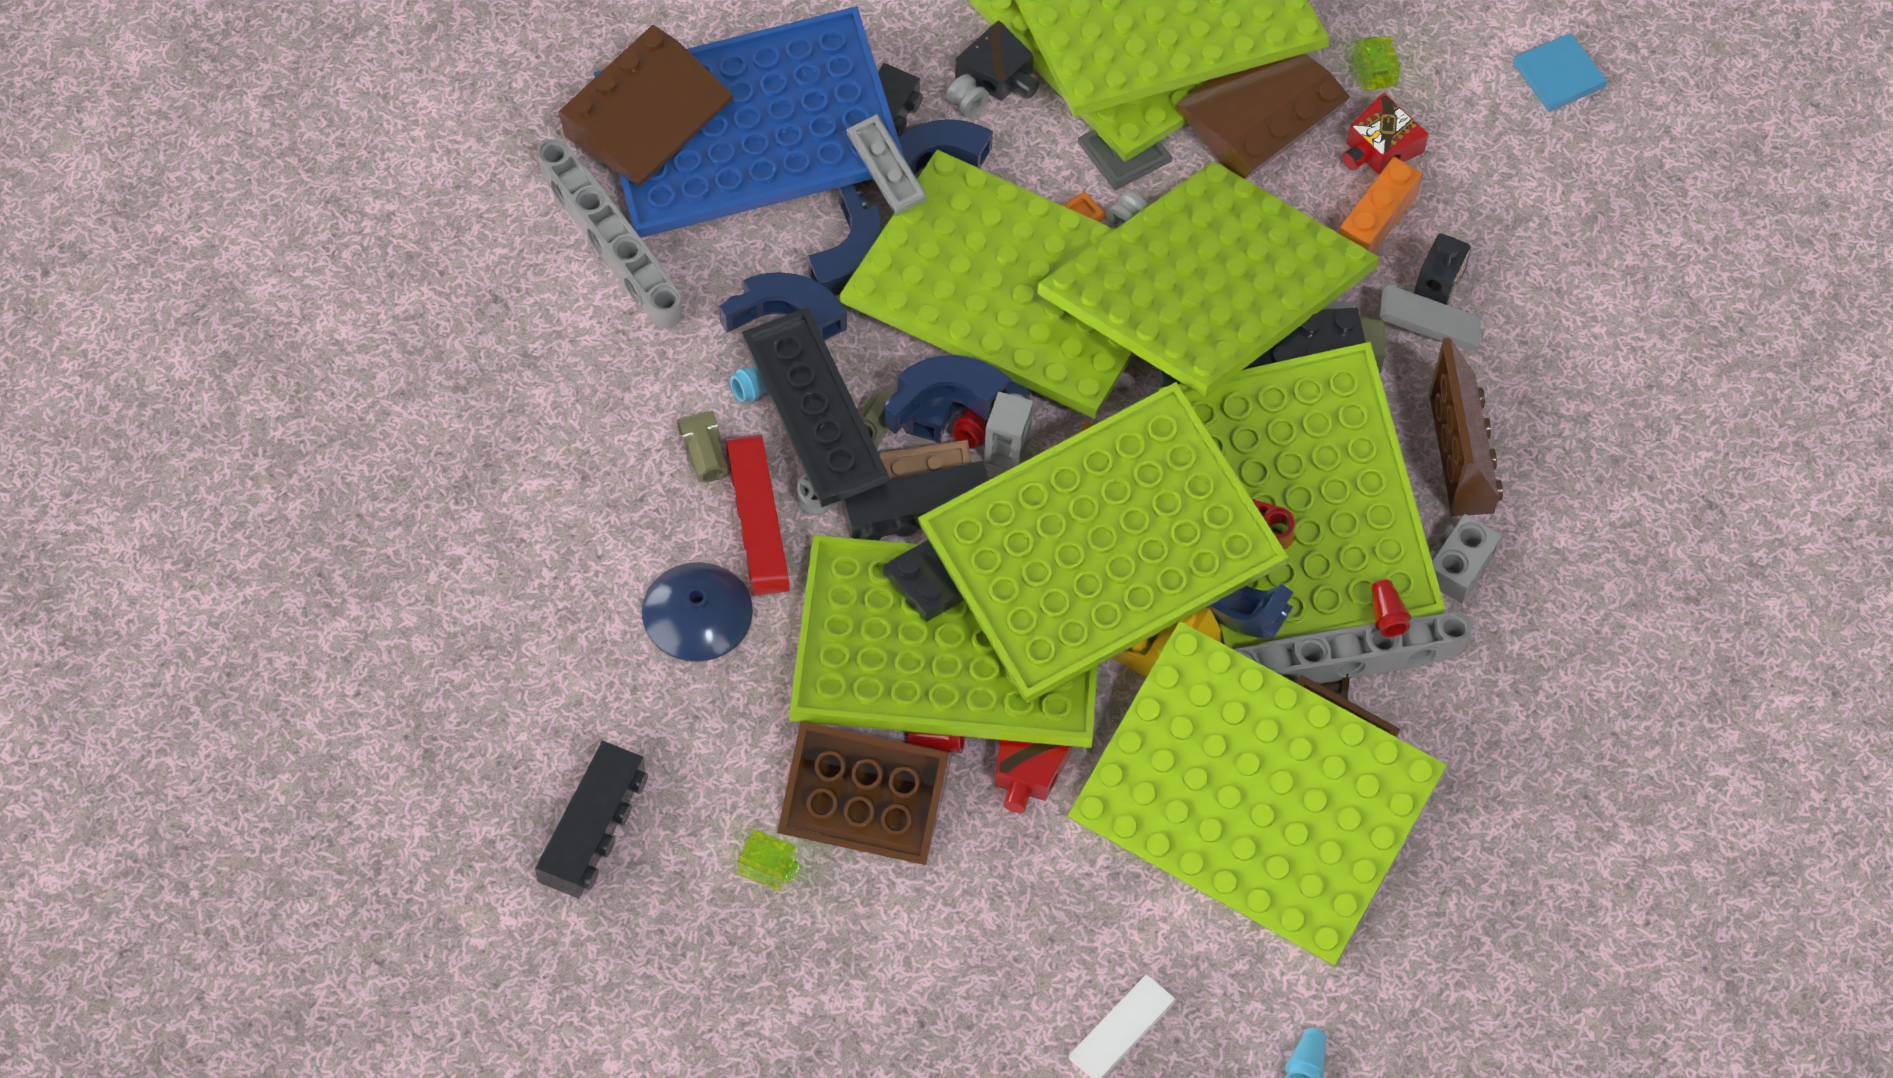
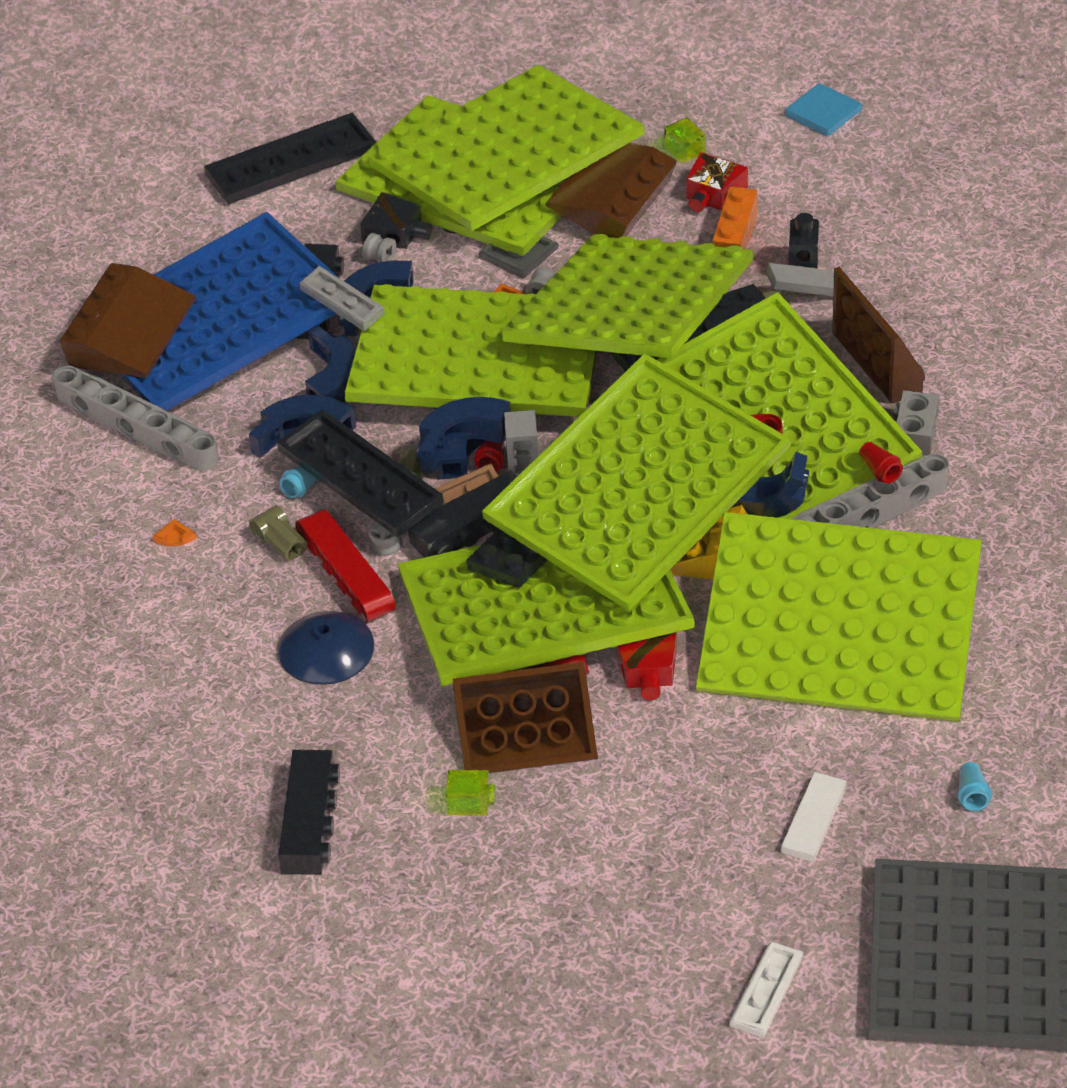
camera: 15 degrees left, 15 degrees down
(594, 402) = (174, 533): none -> orange tile

